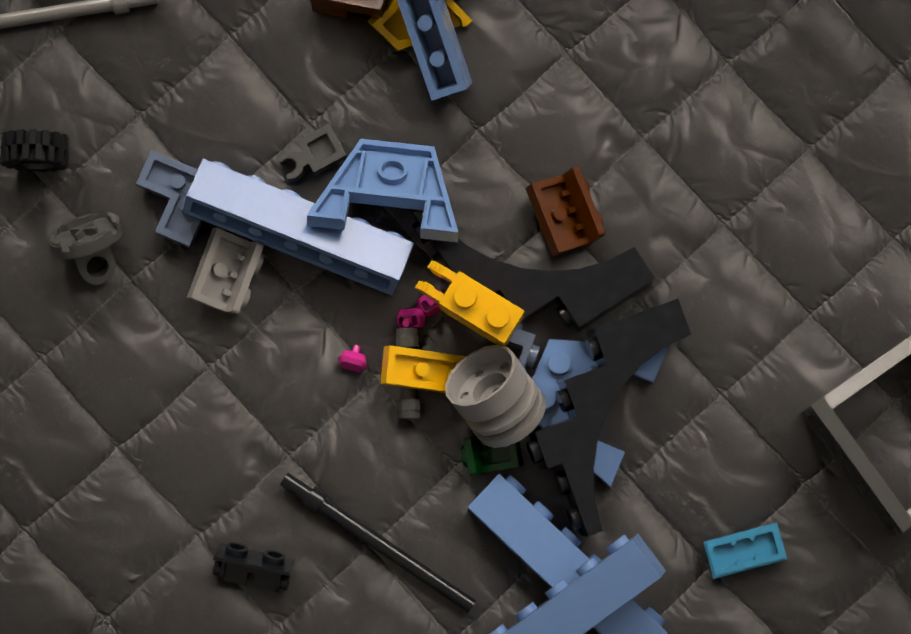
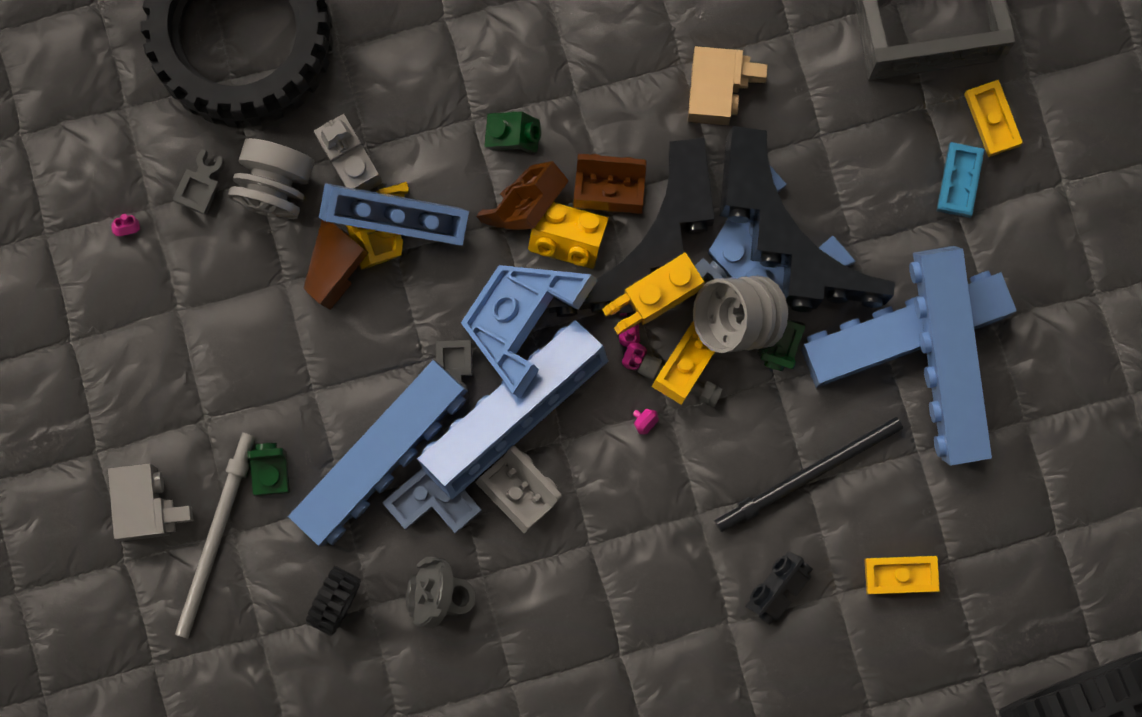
camera: 65 degrees left, 0 degrees up
(132, 32) = (269, 470): none -> dark green bracket
(194, 123) = (378, 453): none -> medium blue brick
(498, 196) = (569, 235): none -> yellow bracket
(512, 140) = (526, 198): none -> reddish brown slope
(571, 95) = (512, 131): none -> dark green bracket
(716, 262) = (715, 78): none -> tan hinge
(824, 553) = (993, 118): none -> yellow plate

